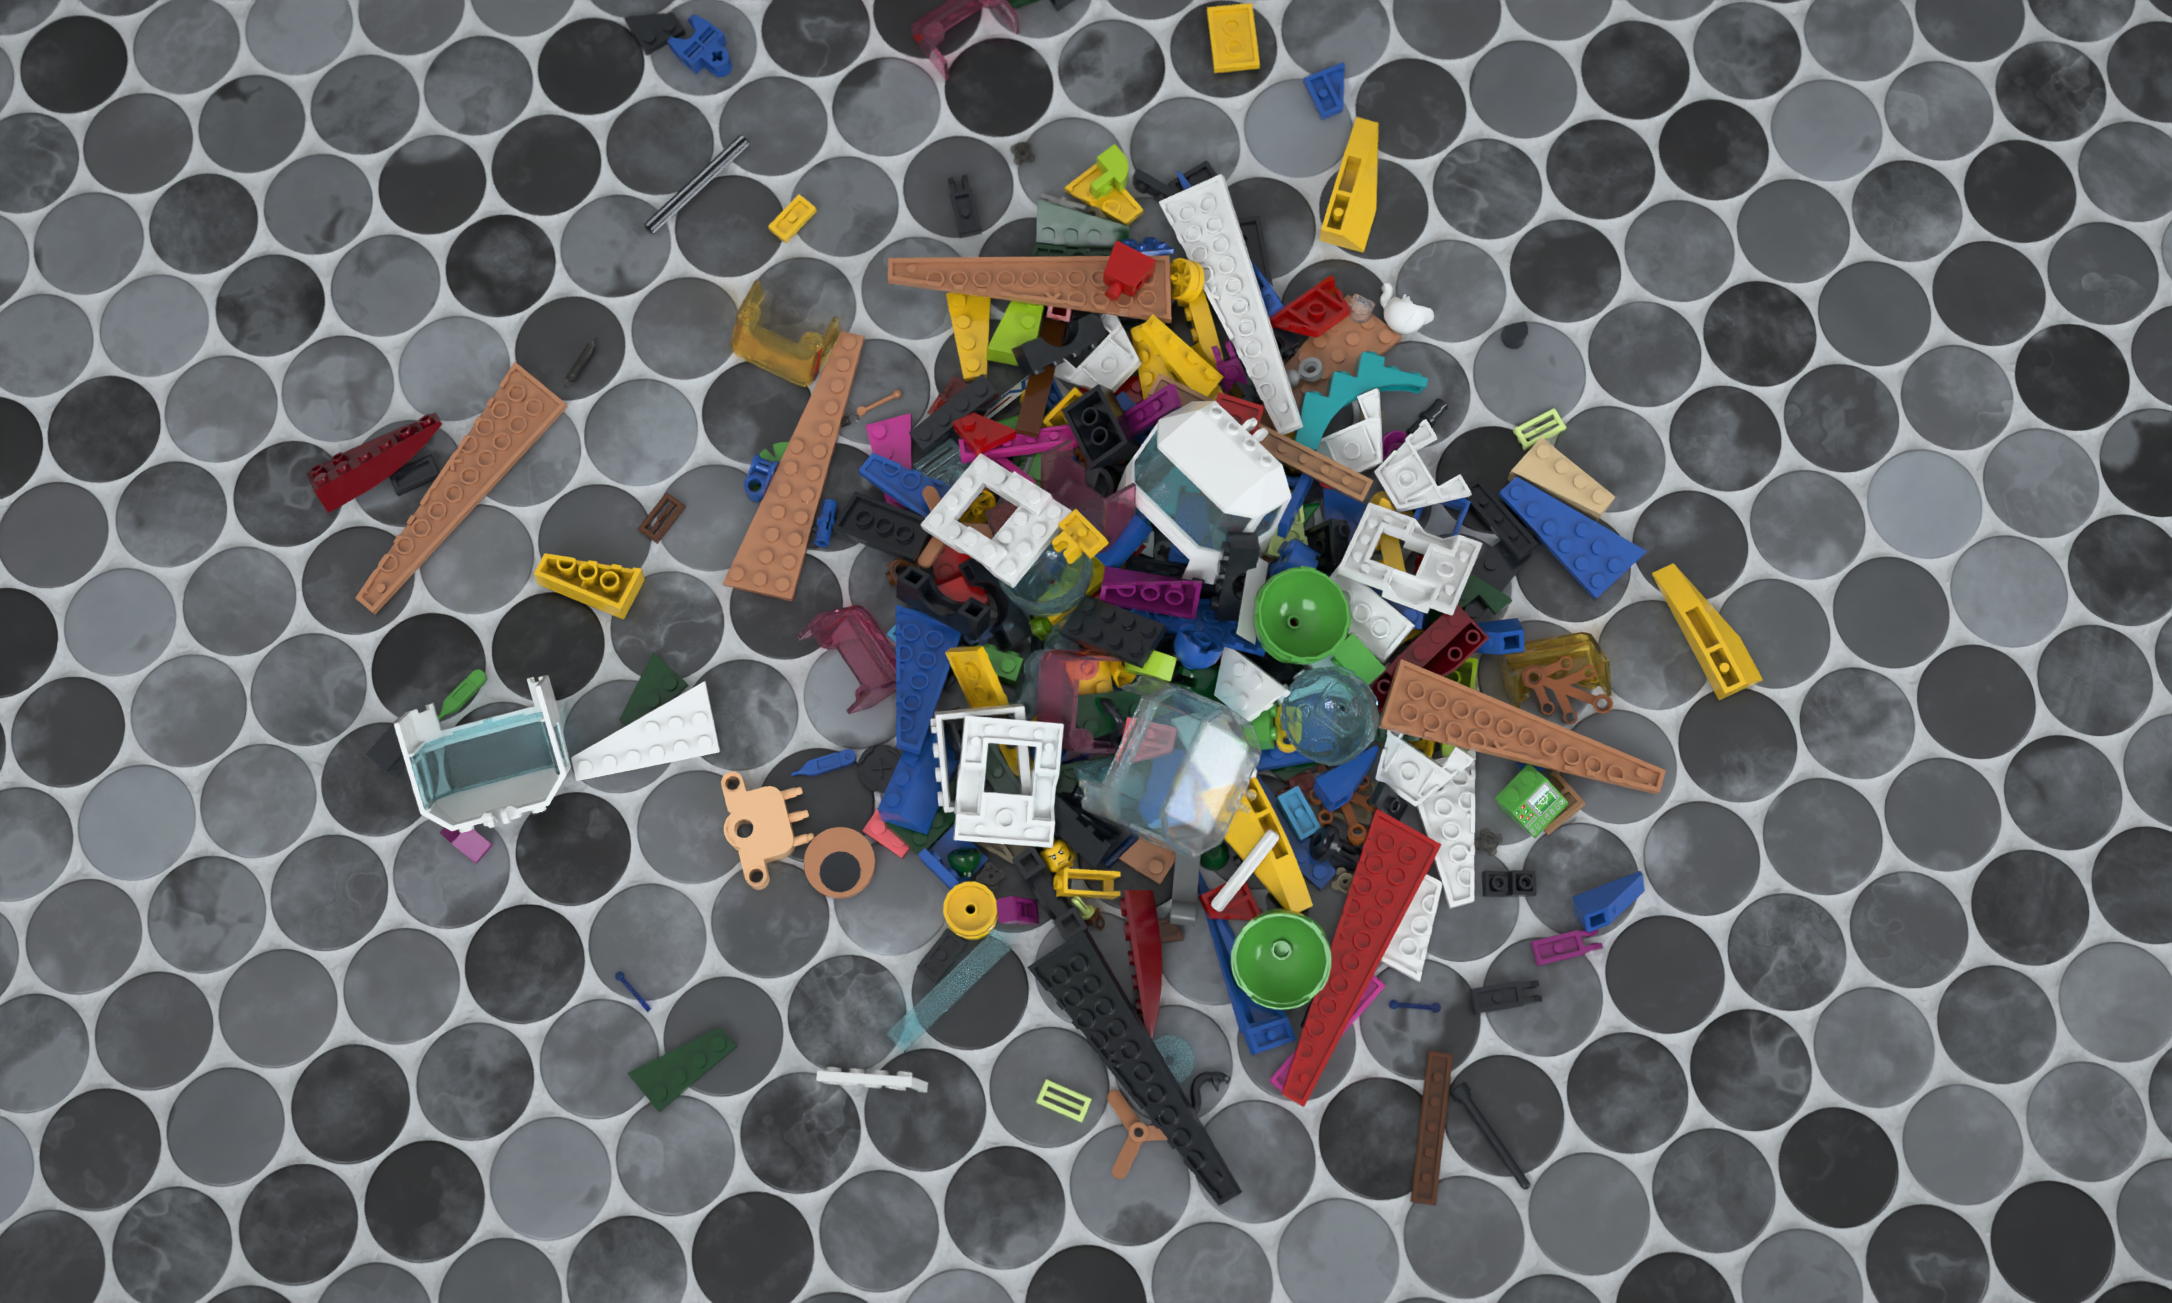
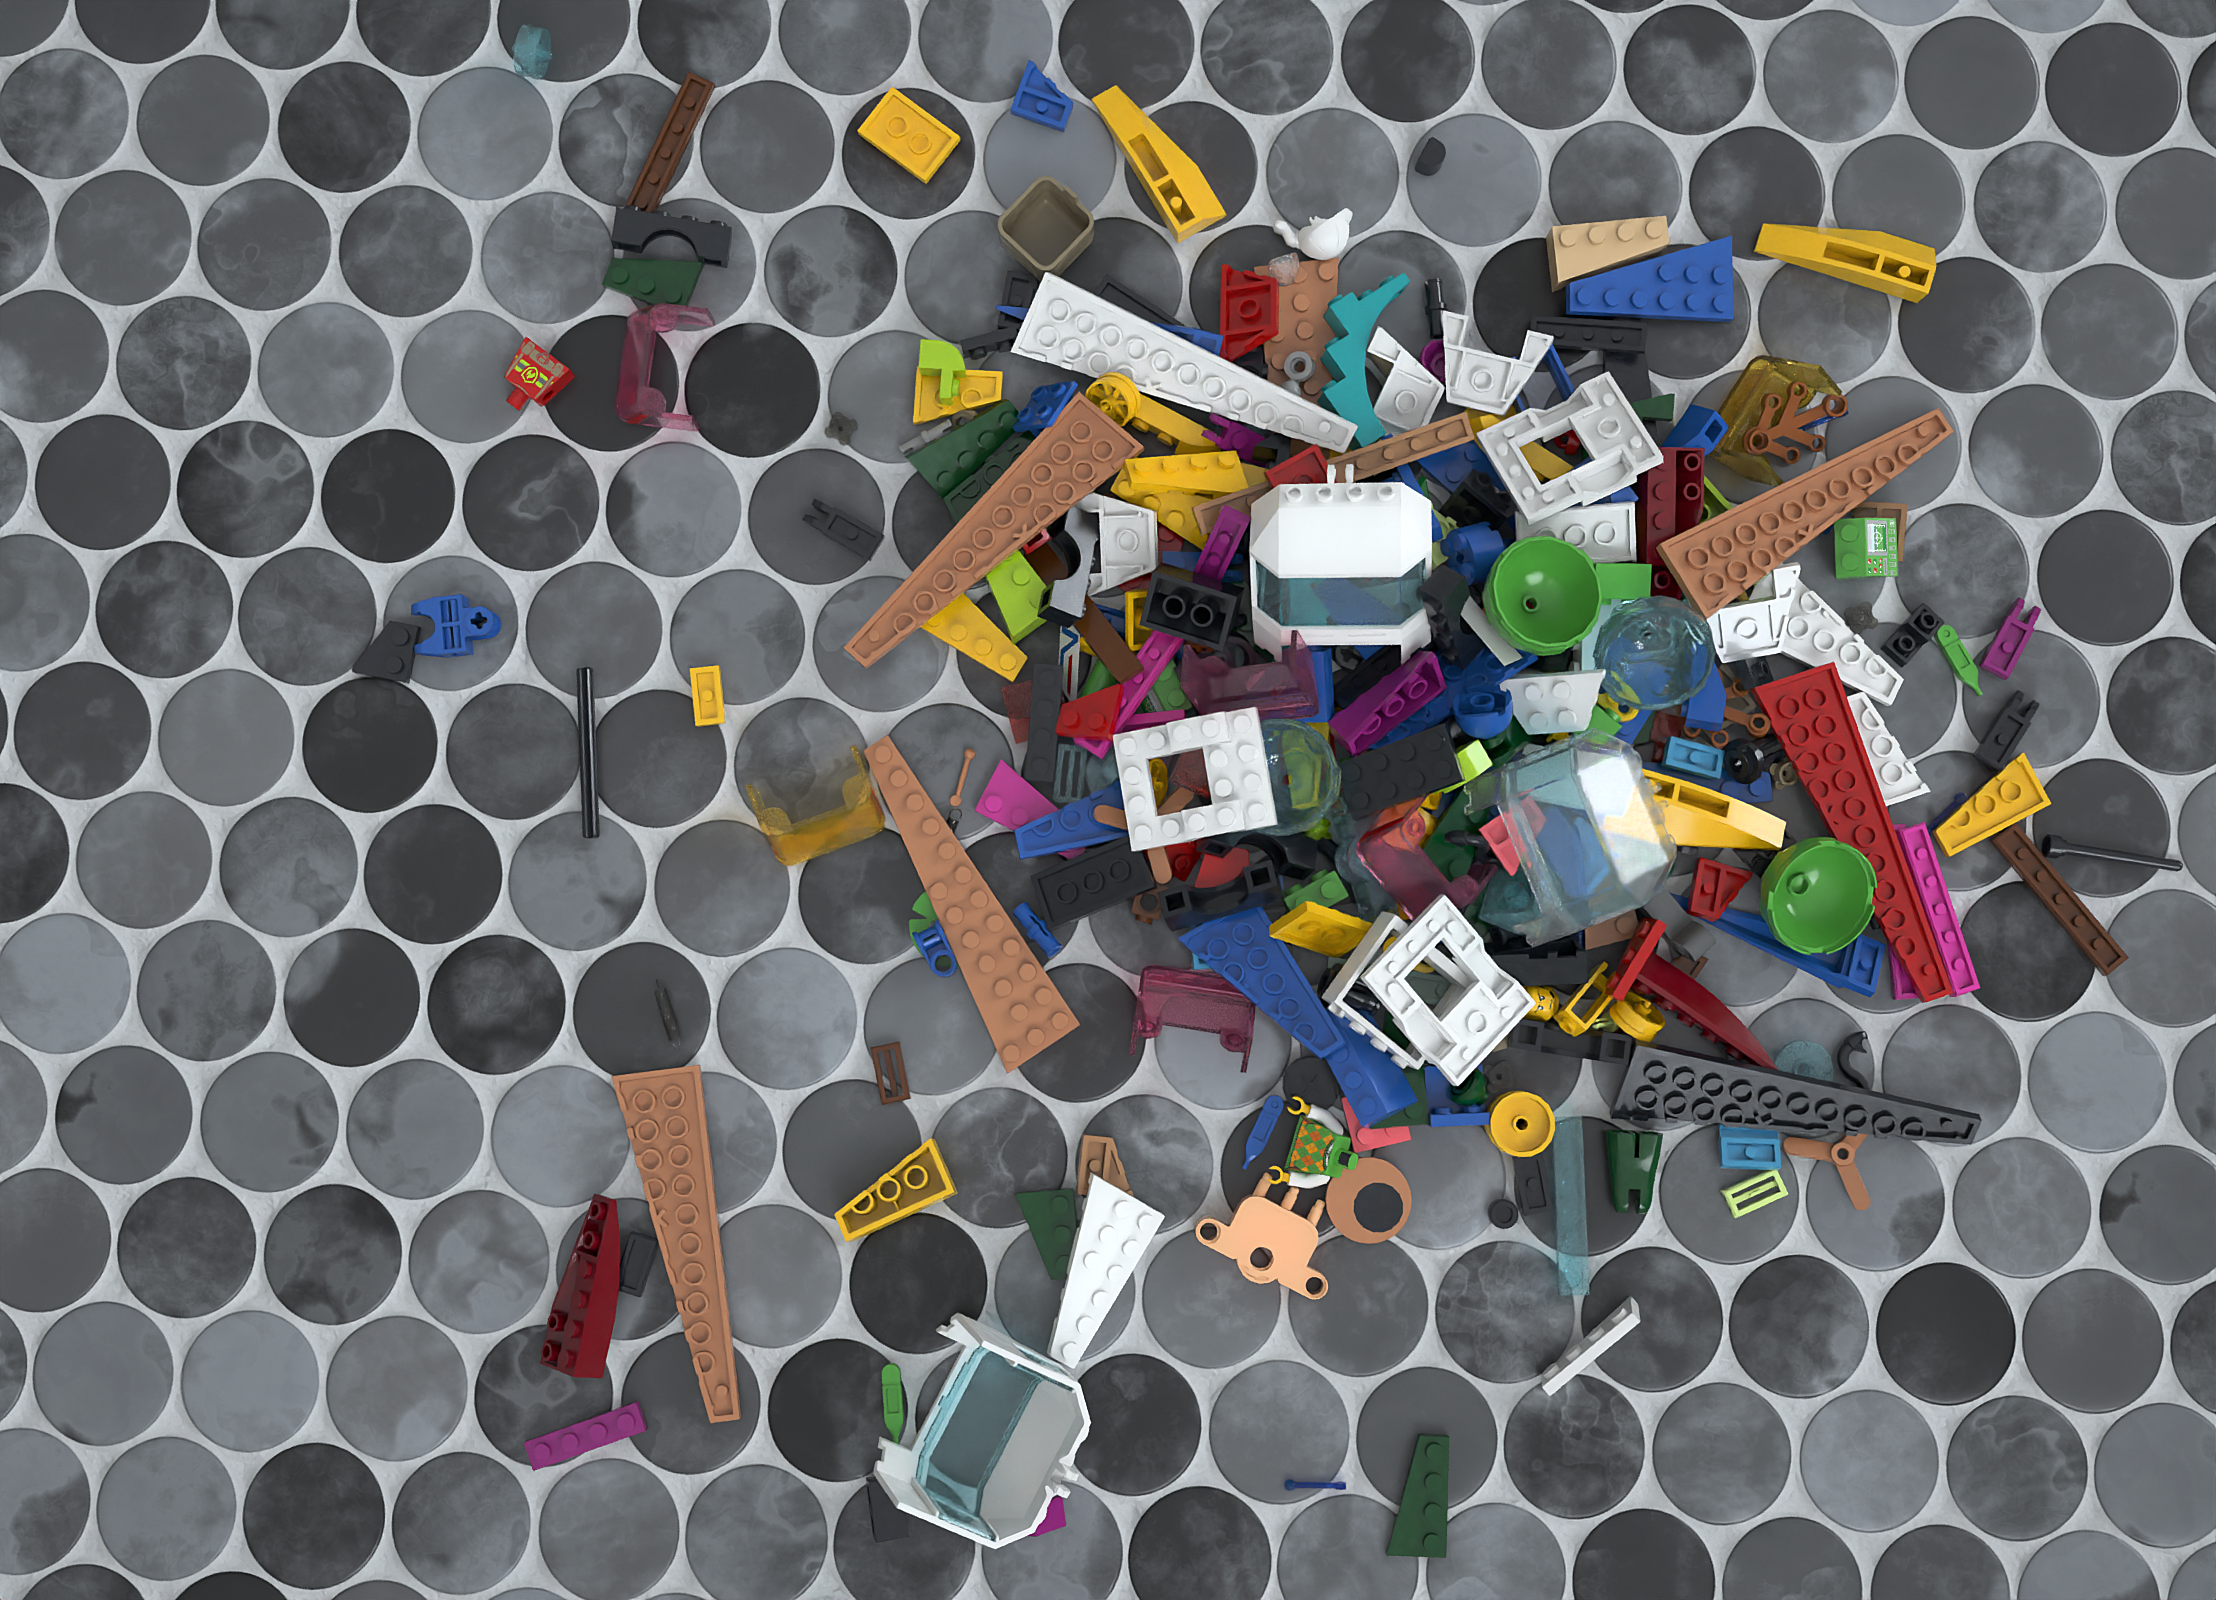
camera: 50 degrees left, 10 degrees up
(285, 536) = (585, 1435): none -> magenta plate
(720, 684) = (1100, 1157): none -> medium nougat wing
(842, 802) = (1317, 1149): none -> torso
(907, 956) = (1503, 1213): none -> black tile
(1008, 1007) = (1633, 1166): none -> dark green piece
(1017, 911) = (1558, 1083): magenta slope -> none
(1077, 537) = (1289, 723): yellow plate -> none
(1087, 1070) = (1748, 1148): none -> dark azure plate
(1104, 922) = (1637, 1017): none -> yellow wheel
(1126, 271) = (1062, 445): red torso -> none
(1135, 880) = (1633, 959): none -> red wing
(1245, 870) = (1711, 854): white axle -> none
(1250, 156) = (1046, 228): none -> dark tan piece
(1350, 1054) = (1938, 907): none -> dark pink tile
(1454, 1033) = (1996, 805): none -> yellow wing
(1522, 438) = (1528, 243): yellowish green tile -> none
(1523, 925) = (1958, 657): none -> bright green piece
(1605, 903) = (2007, 571): blue slope -> none
(1606, 717) = (1820, 421): none -> clear blue hinge

